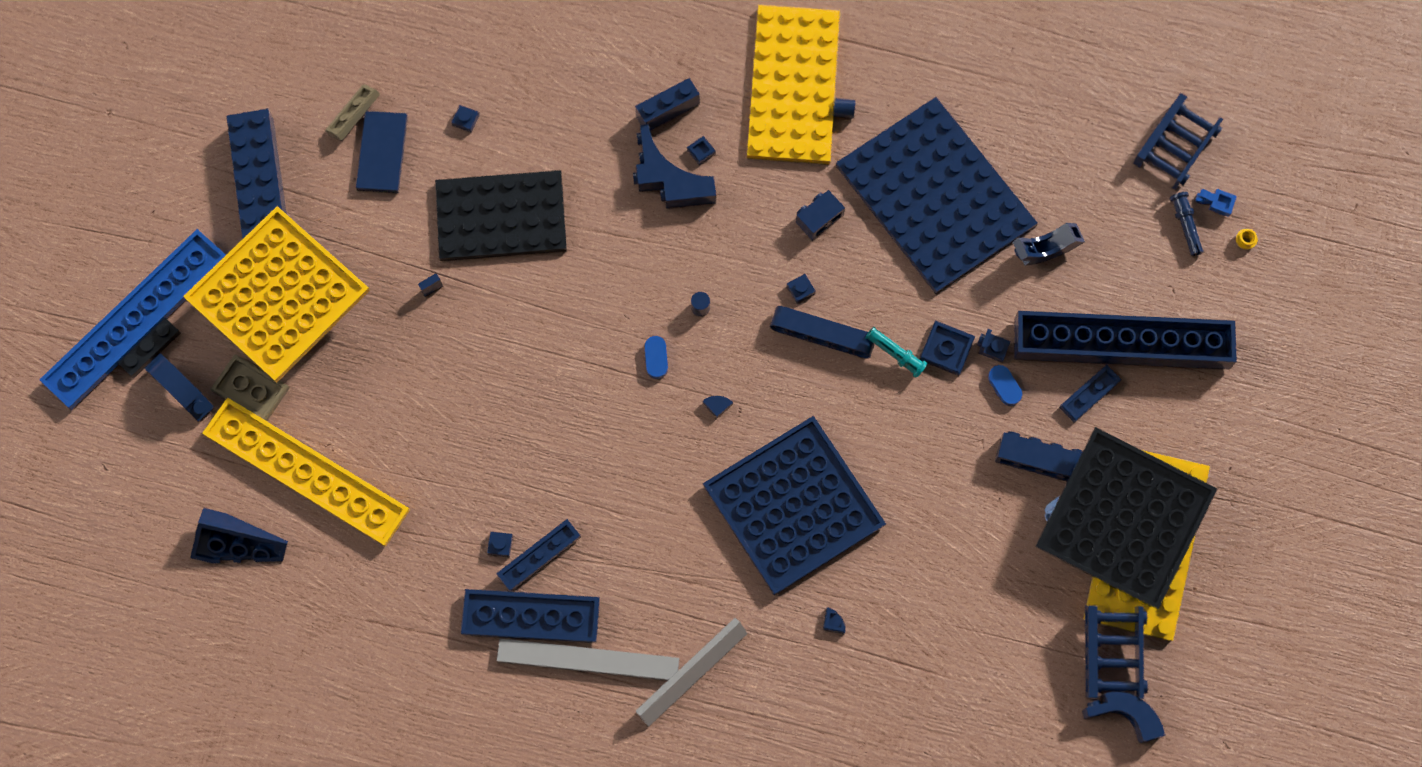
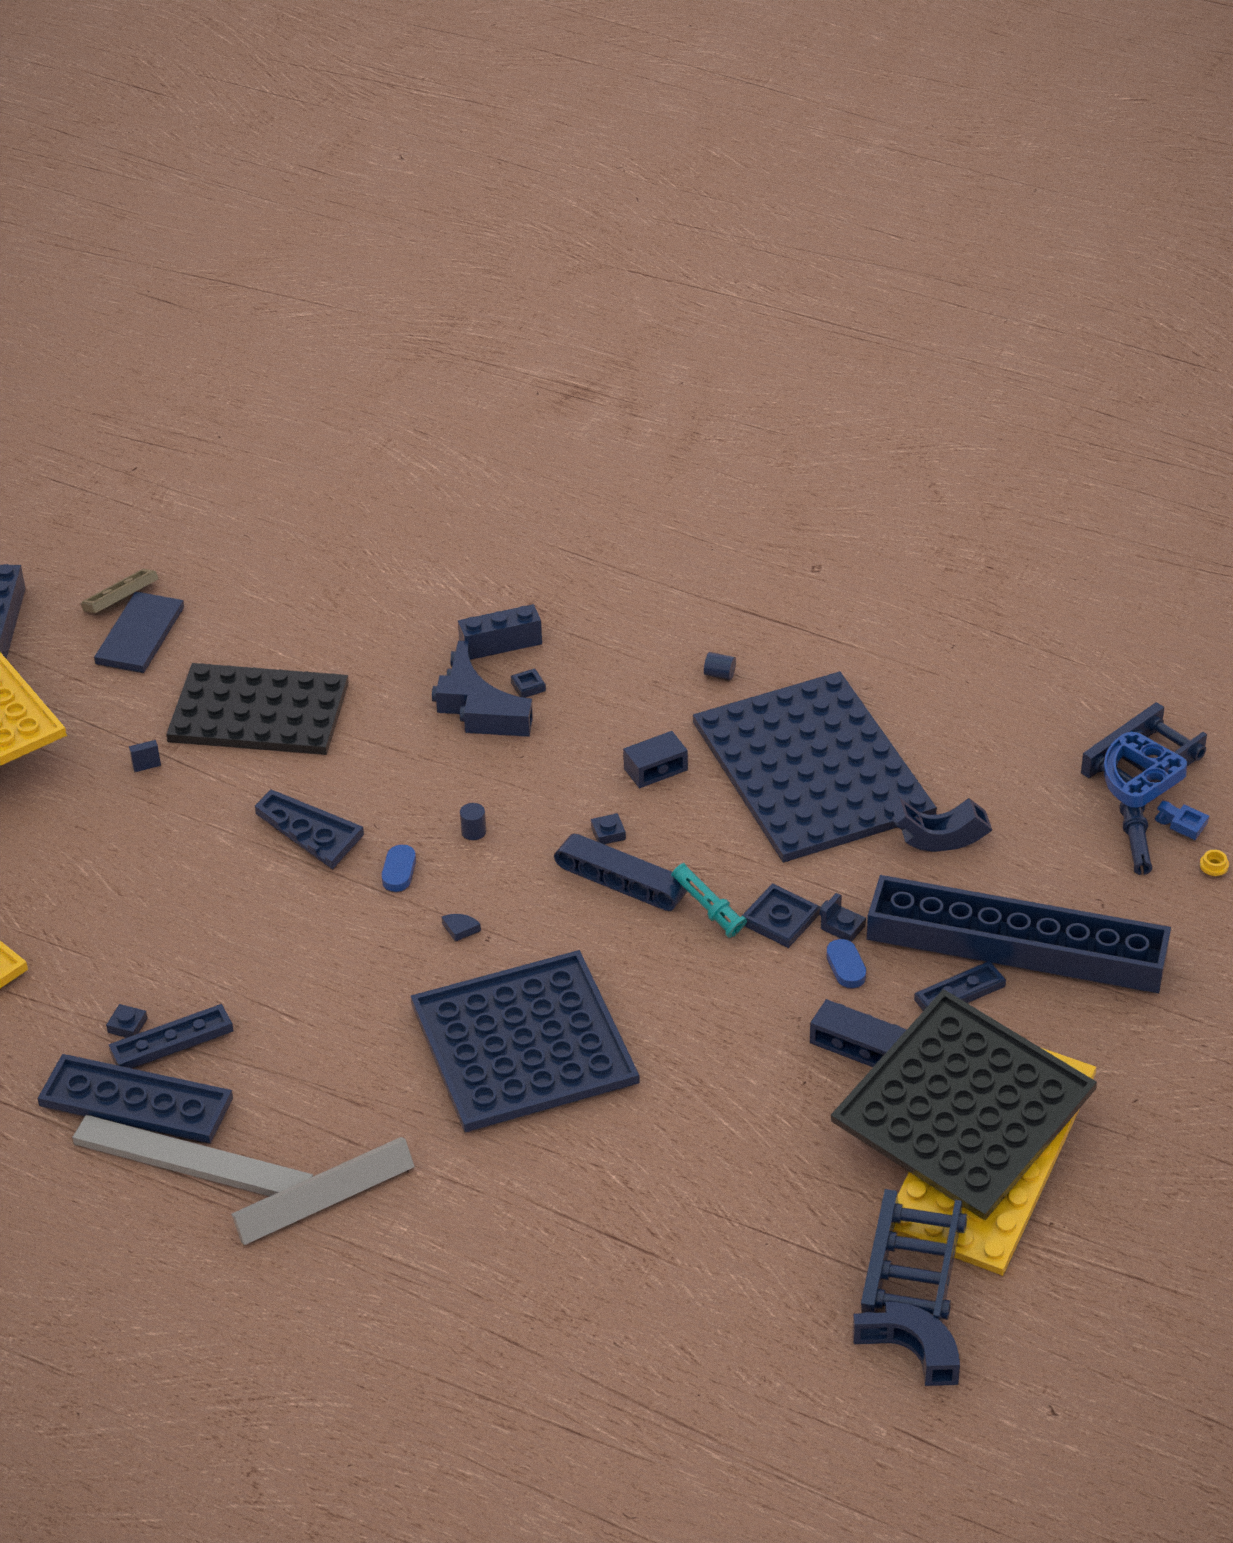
camera: 15 degrees right, 30 degrees down
(465, 118) = (251, 616): dark blue plate -> none
(583, 333) = (311, 828): none -> dark blue wing
(793, 84) = (663, 640): yellow plate -> none
(833, 622) = (534, 1174): dark blue tile -> none
(1197, 161) = (1137, 792): none -> blue beam

